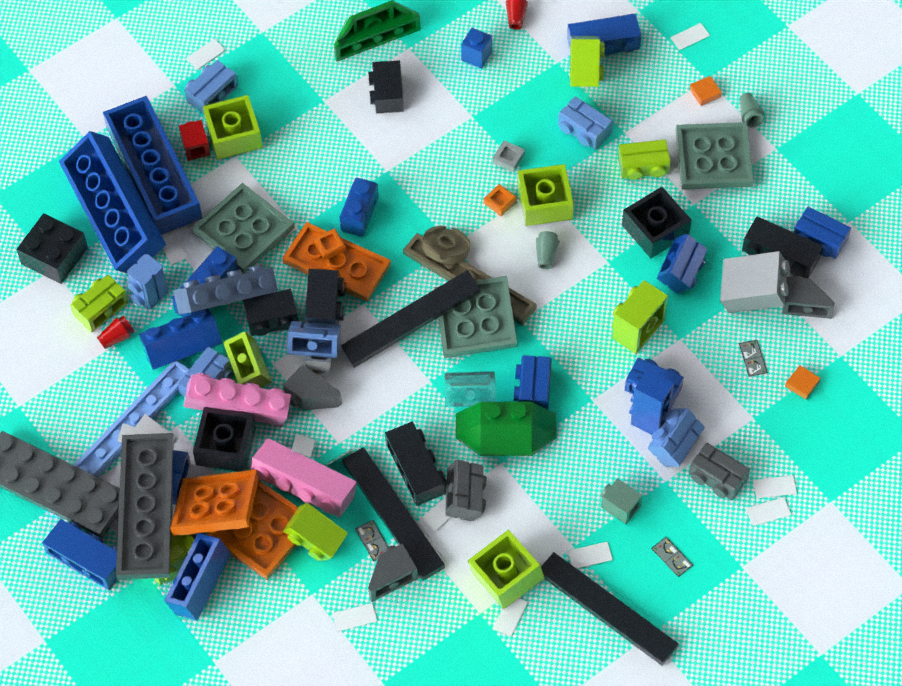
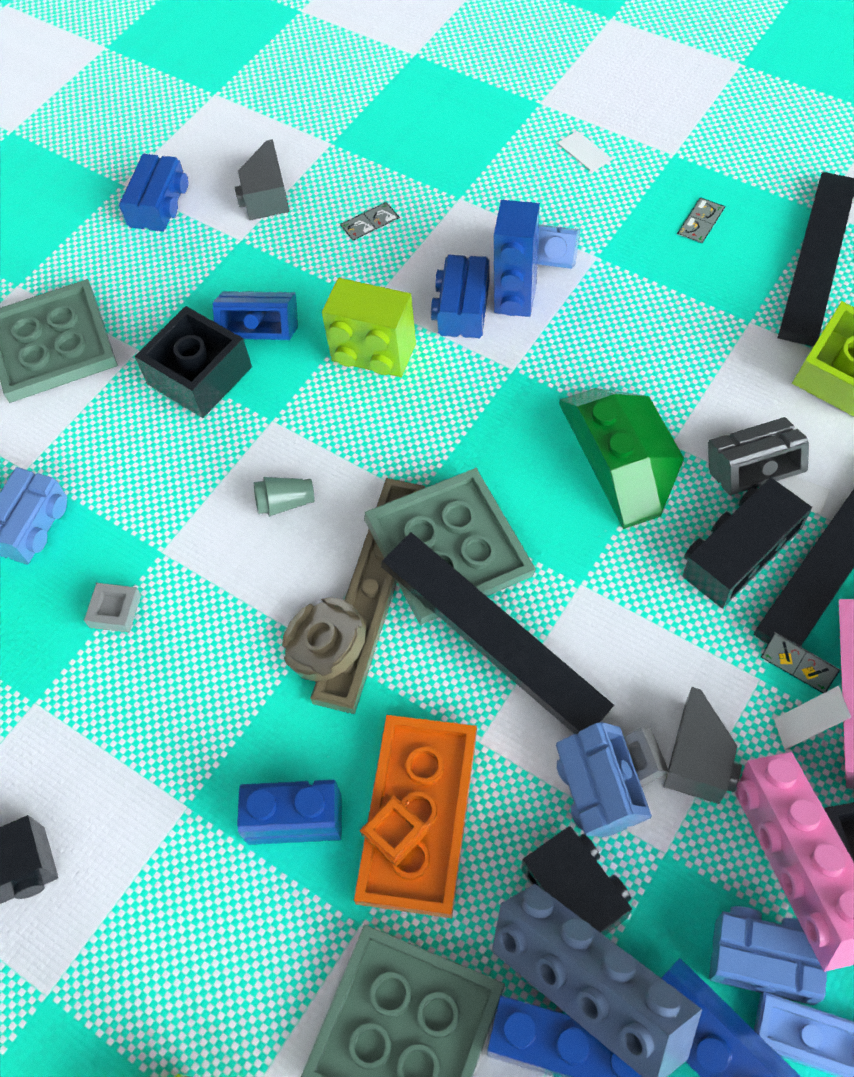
camera: 105 degrees left, 0 degrees up
(247, 360) = (708, 881): lime brick -> none
(324, 296) = (526, 779): black brick -> none
(469, 388) = (585, 504): clear light blue brick -> none
(500, 200) = (202, 597): orange tile -> none
(534, 380) = (530, 432): blue brick -> none
(545, 195) = (184, 518): lime brick -> none
(590, 555) = (752, 300): white sticker -> none
(621, 500) = (662, 278): sand green brick -> none
(643, 159) = (77, 419): lime brick -> none
(719, 472) = (565, 192): dark grey brick -> none
(754, 282) = (262, 223): brick -> none
(774, 486) = (547, 154): white sticker -> none
(798, 250) = (191, 224): black brick -> none
(802, 382) = (388, 161): orange tile -> none

